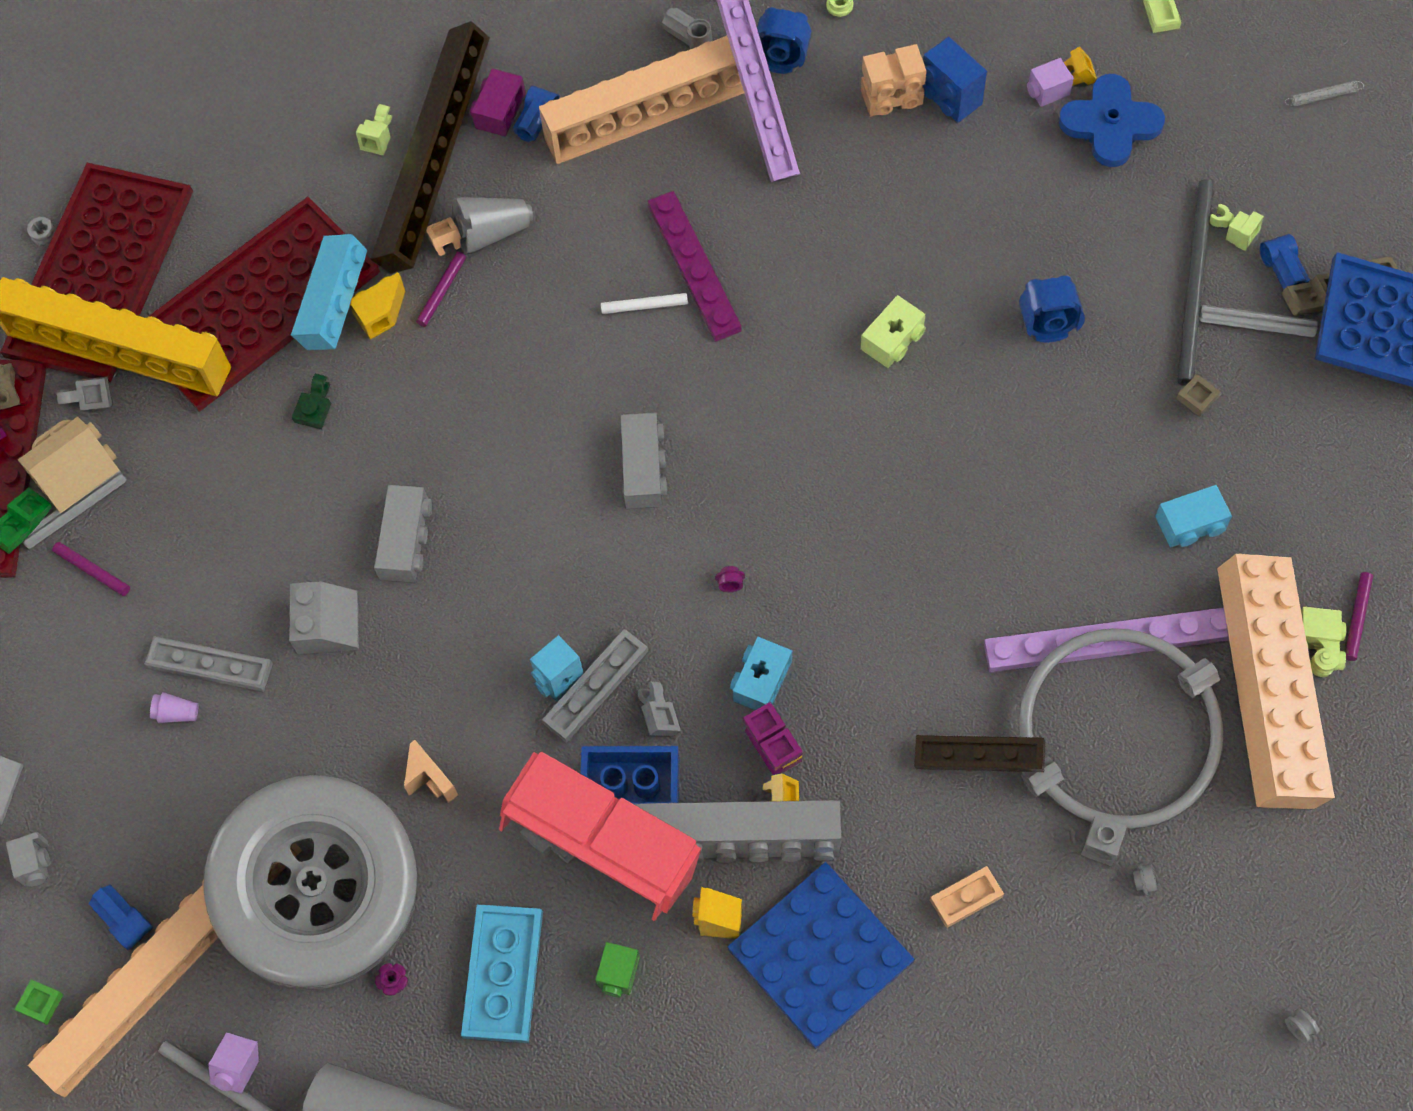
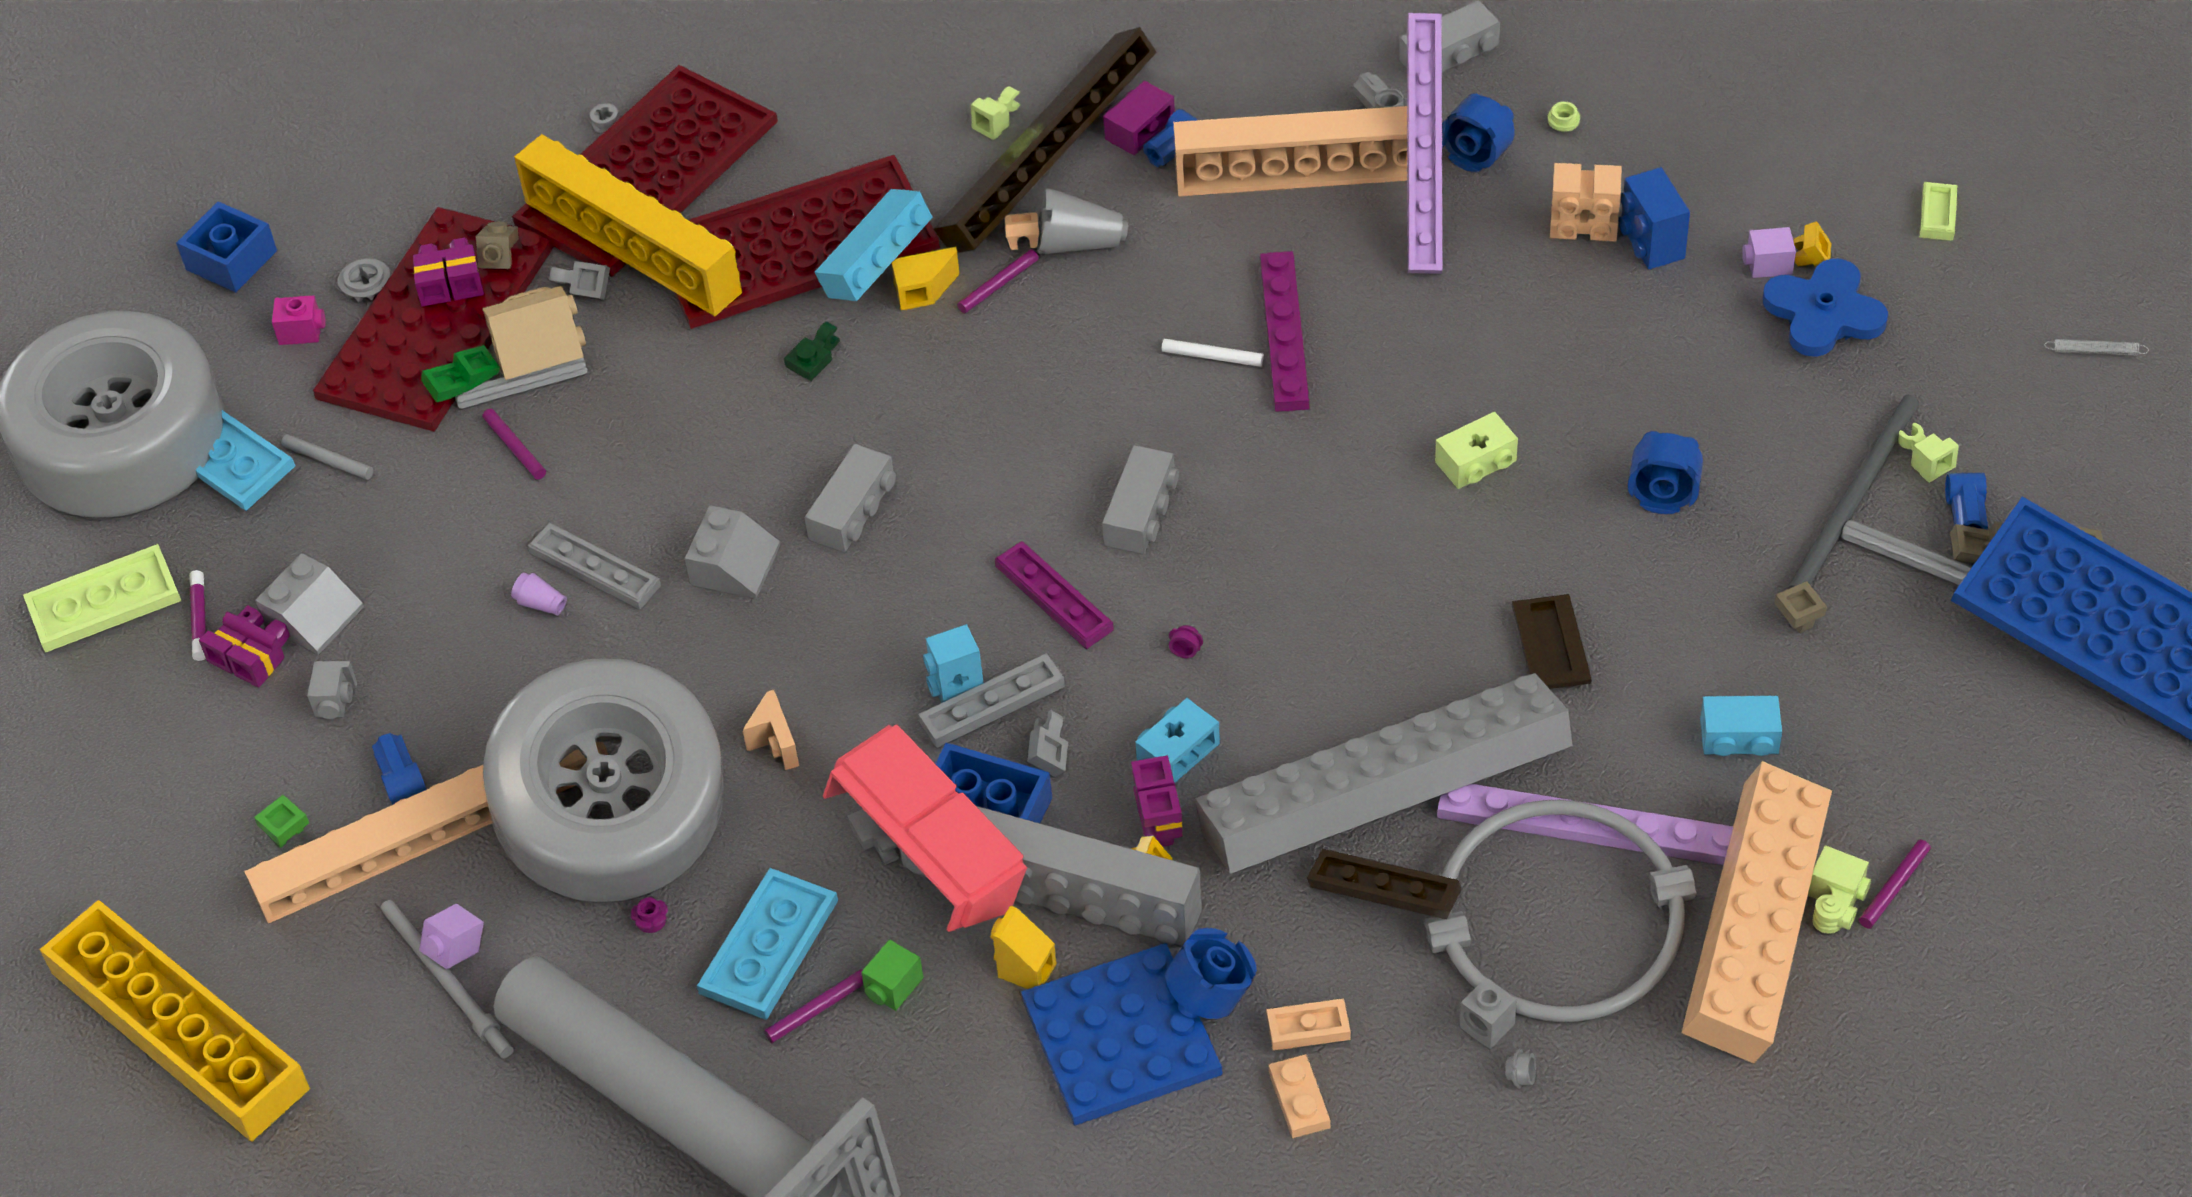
camera: 20 degrees right, 15 degrees down
(564, 1016) = (814, 1007): none -> magenta bar
(605, 568) = (1054, 594): none -> magenta tile
(878, 885) = (1210, 974): none -> blue brick
(938, 653) = (1383, 772): none -> light grey brick
(983, 962) = (1299, 1096): none -> light nougat plate
(1018, 487) = (1552, 641): none -> dark brown piece

